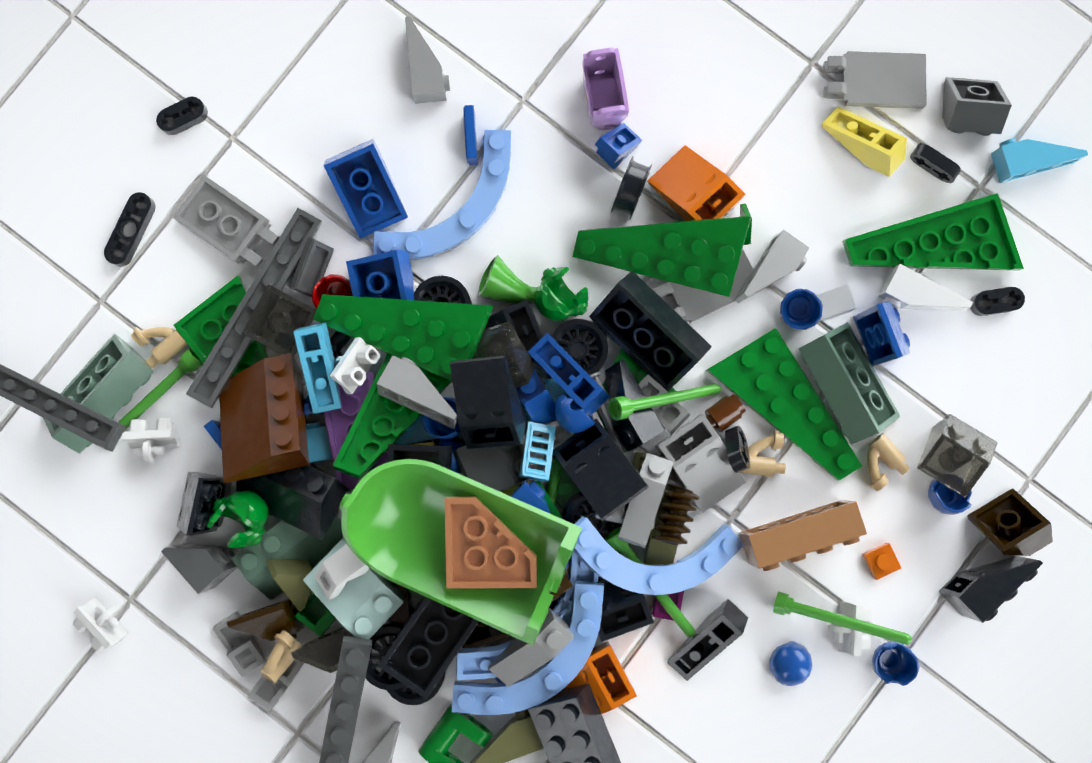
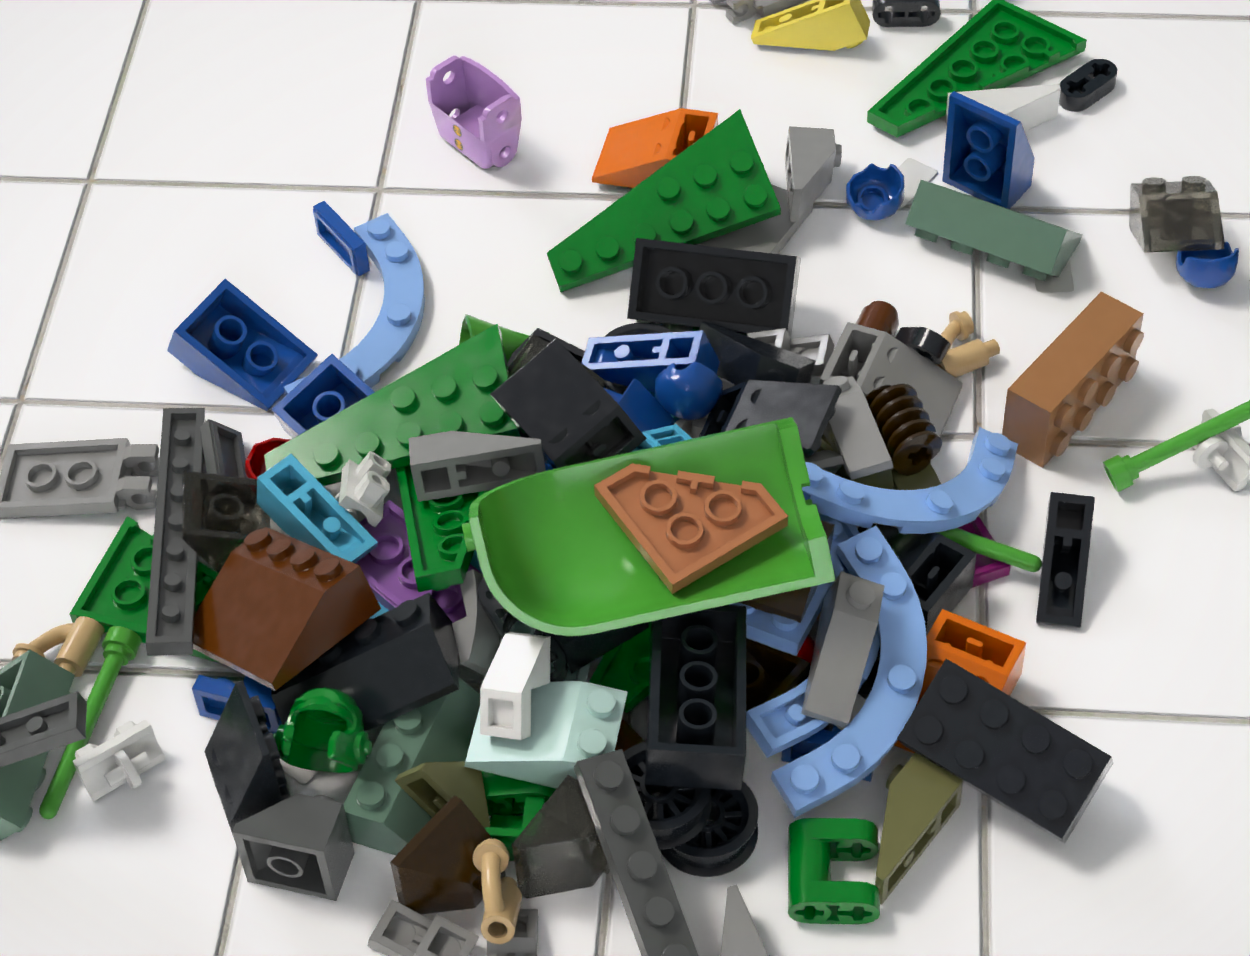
camera: 30 degrees left, 35 degrees down
(426, 72) = (233, 206): light grey slope -> none
(556, 300) = (575, 320): green helmet -> none
(617, 145) = (528, 168): blue slope -> none
(623, 407) = (743, 342): bright green piece -> none
(631, 188) = (579, 177): black wheel -> none
(780, 393) = (934, 283): green wing -> none
(791, 664) = (1191, 529): blue hair -> none
(881, 561) = (1196, 373): orange plate -> none
(890, 455) = (1094, 269): tan plant -> none

